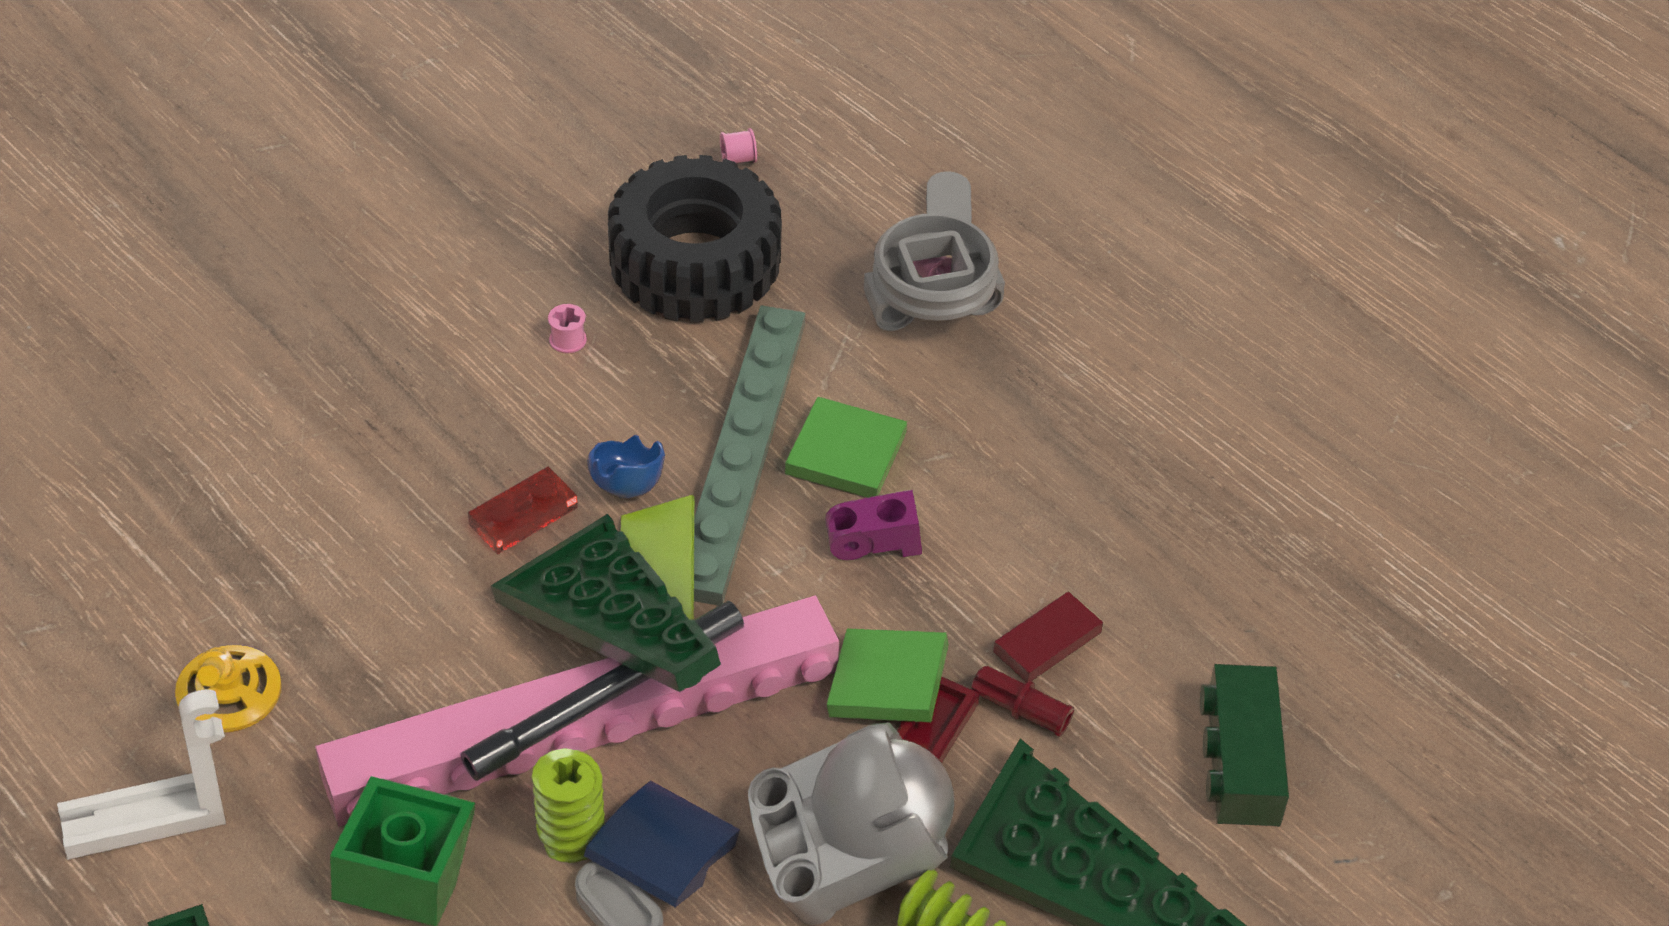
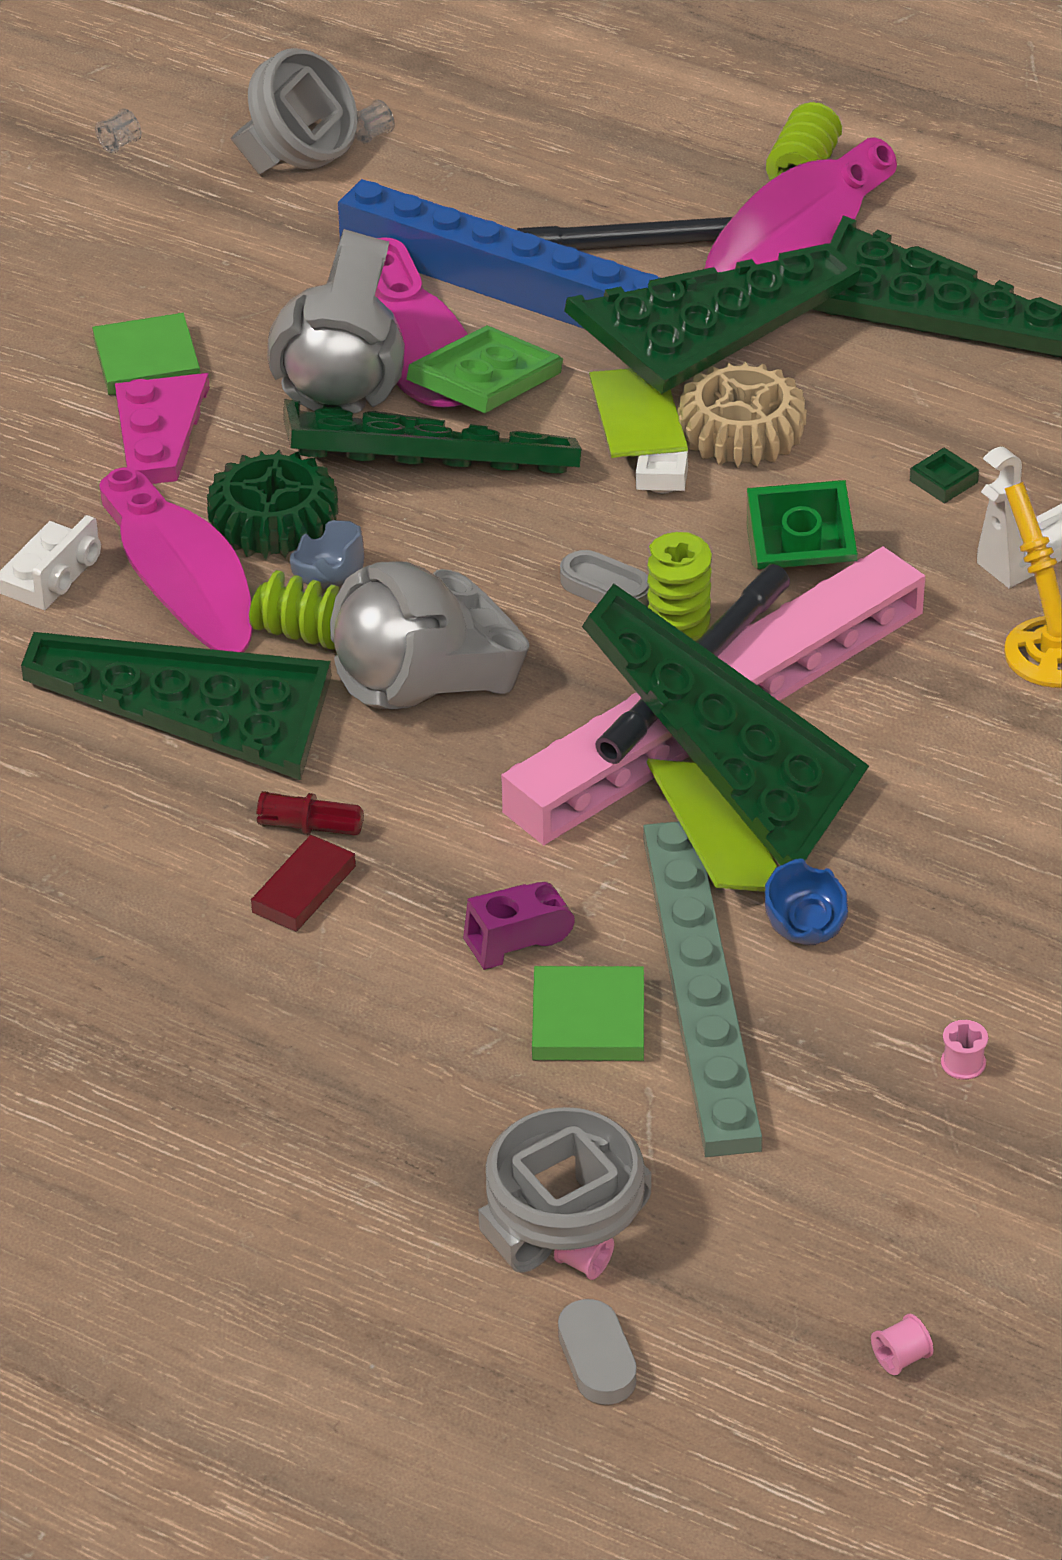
camera: 165 degrees right, 5 degrees down
(522, 510) = (890, 861): clear red plate -> none
(662, 843) = (564, 609): dark blue slope -> none
(694, 277) = (873, 1219): black tyre -> none
(888, 675) = (447, 793): bright green tile -> none
(950, 715) = (390, 780): dark red tile -> none
(1245, 745) = (82, 821): dark green brick -> none

